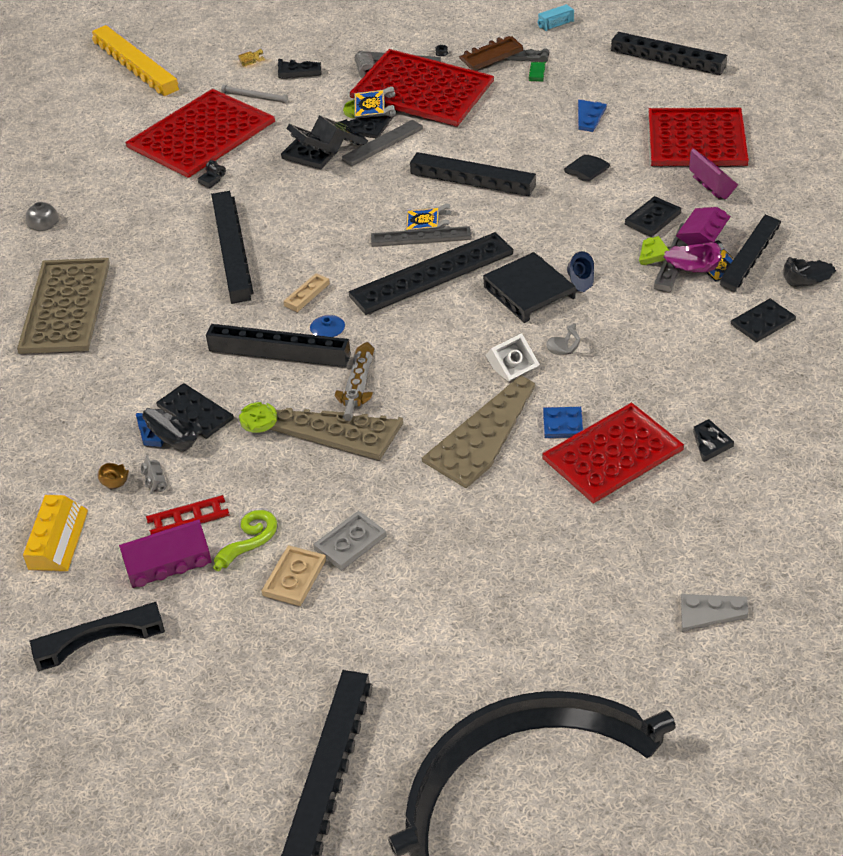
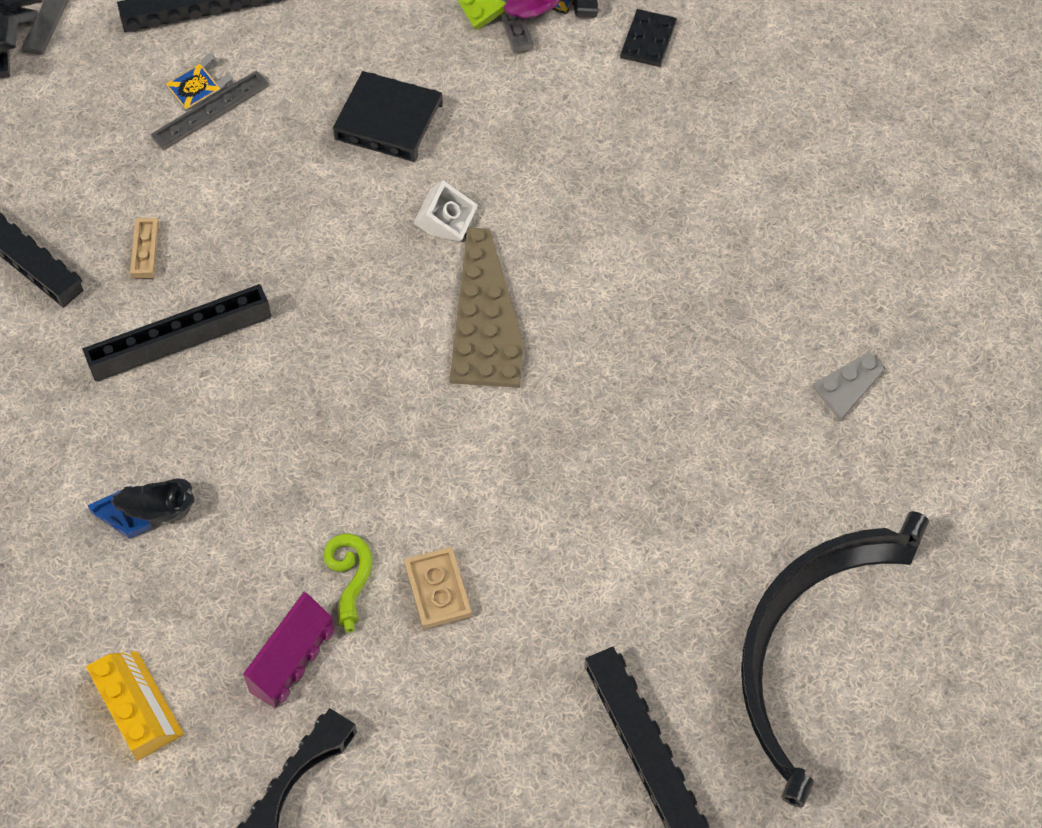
camera: 40 degrees left, 15 degrees up
(112, 475) = (127, 589): pearl gold hair -> none
(153, 475) = (169, 562): light grey hinge -> none
(195, 407) = (146, 461): black plate -> none
(195, 507) = (259, 606): red bar -> none
(258, 417) = (237, 432): lime tile -> none
(327, 326) = (203, 284): blue dish -> none
(350, 540) = (459, 514): light grey plate -> none
(354, 391) = (315, 346): sword -> none
(359, 436) = (347, 393): dark tan wing -> none
(430, 273) = (263, 153): black plate -> none
(559, 345) = (473, 171): light grey piece -> none
(562, 421) = (553, 259): blue plate -> none
(581, 271) = (427, 69): dark blue piece -> none
(612, 452) = (629, 267): red plate -> none
(711, 440) = (708, 202): black wing -> none

